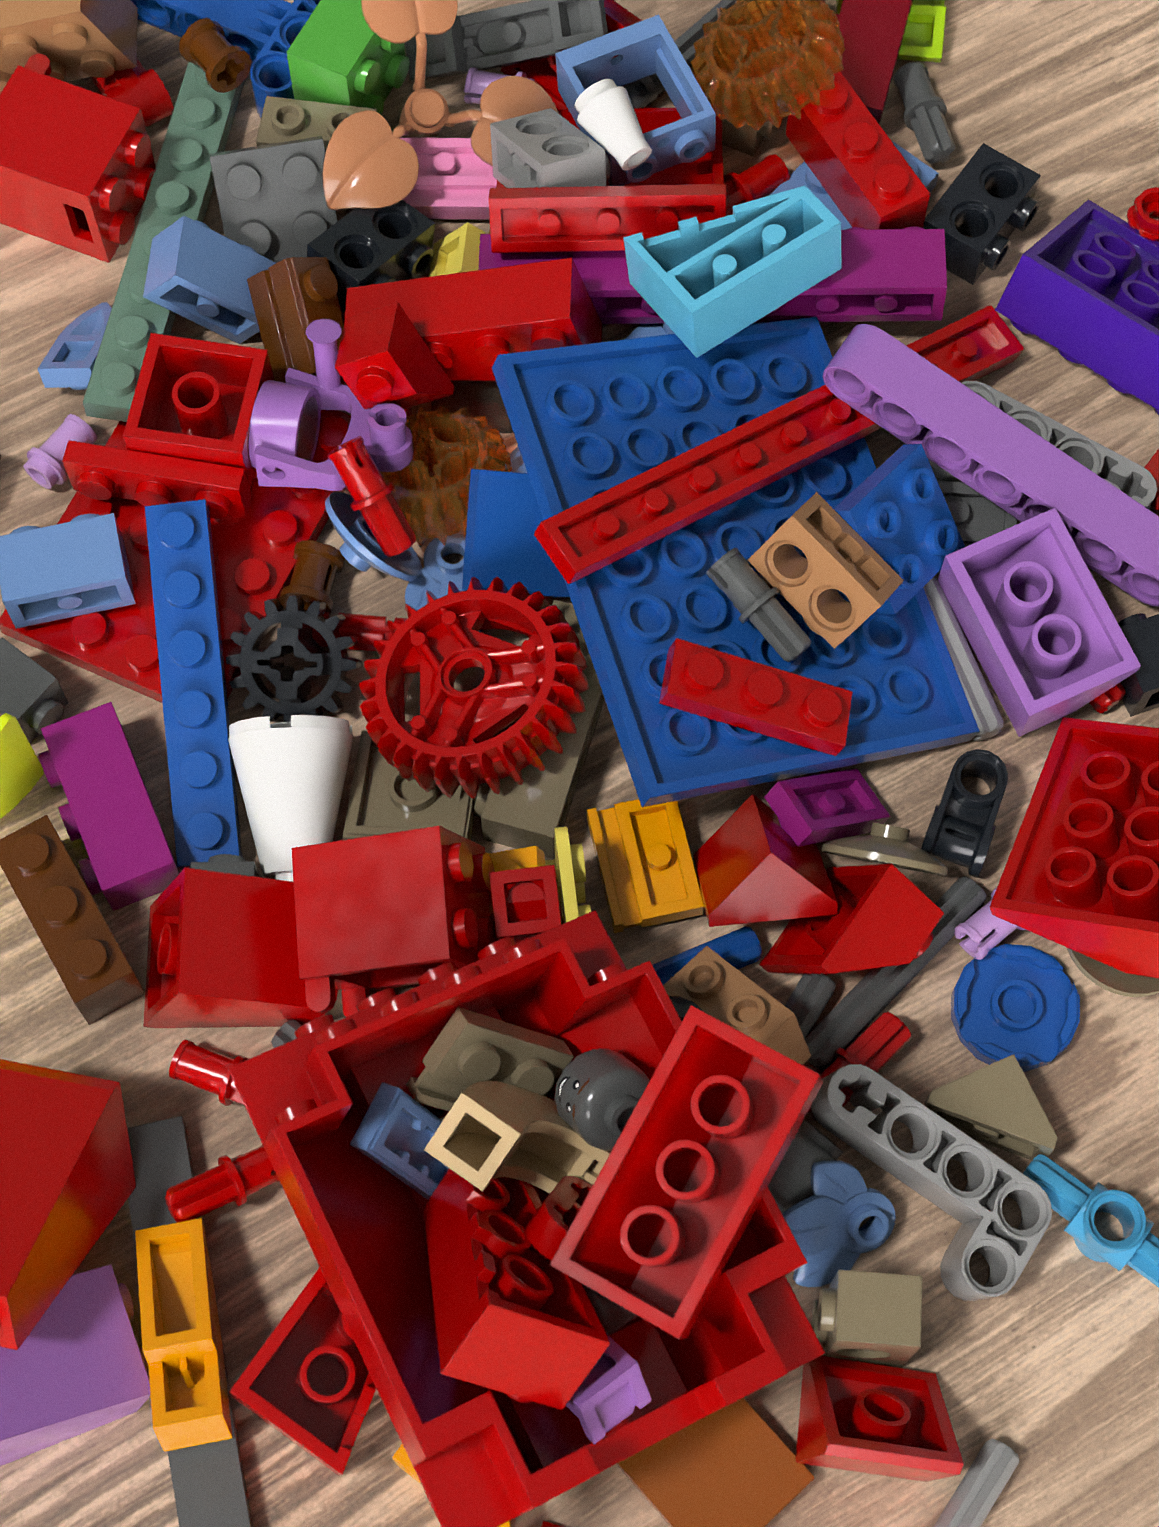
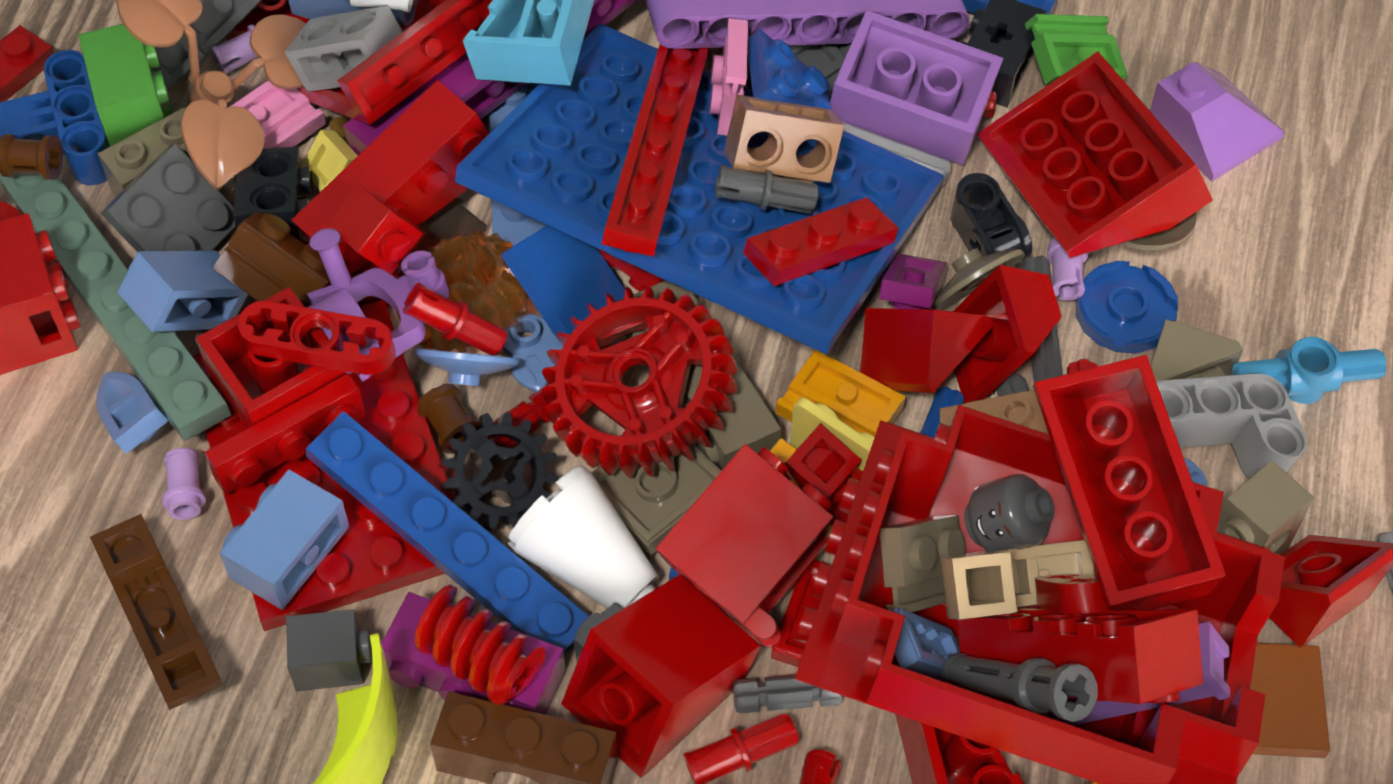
camera: 45 degrees left, 10 degrees down
(87, 797) = (474, 649): none -> red piece
(233, 440) = (275, 345): none -> red beam
(413, 1264) = (1033, 684): none -> dark grey pin
(848, 470) = (729, 73): none -> bright pink plate

